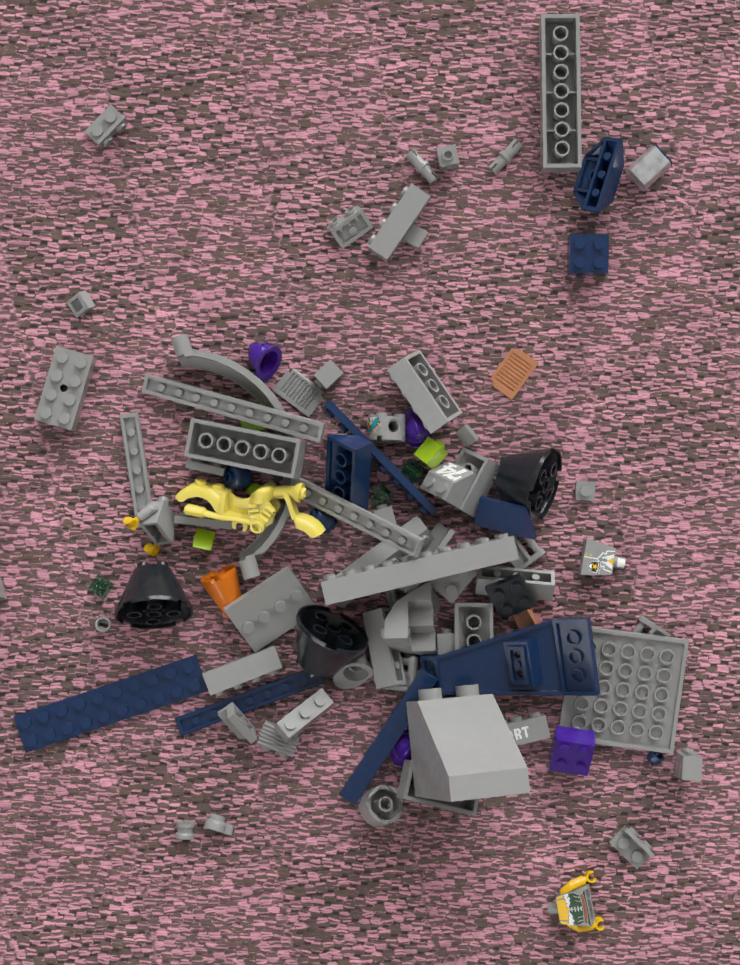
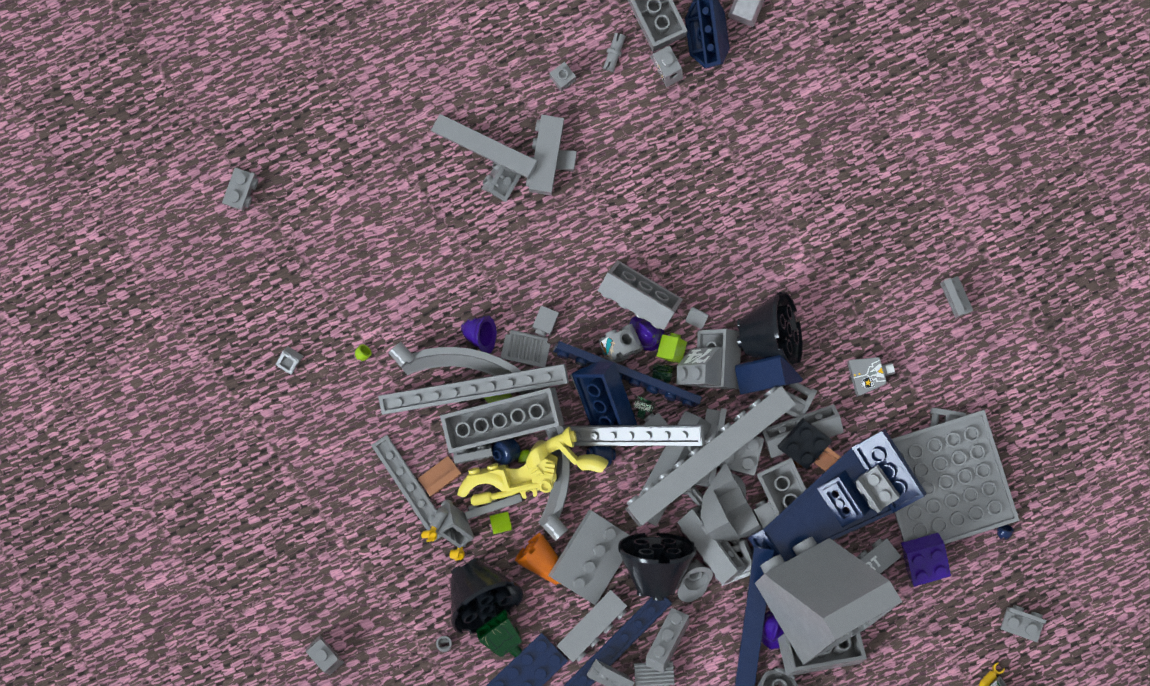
camera: 25 degrees left, 5 degrees down
(68, 369) = (316, 461): light grey brick -> none
(101, 586) = (426, 610): clear green tile -> none
(153, 329) = (363, 352): none -> lime hinge
(156, 641) = (501, 635): none -> dark green torso
(168, 472) = (439, 476): none -> nougat panel
(346, 189) = (484, 146): none -> light grey tile
(422, 167) = (543, 95): light grey pin -> none
(513, 372) = (712, 242): nougat window -> none
(548, 191) = (667, 65): none -> light grey torso
(557, 667) = (877, 488): none -> light grey bracket
(585, 491) = (827, 319): light grey plate -> none
(587, 254) = (729, 106): dark blue brick -> none
(688, 765) = (1037, 523): light grey brick -> none
(712, 525) = (956, 296): none -> light grey bracket

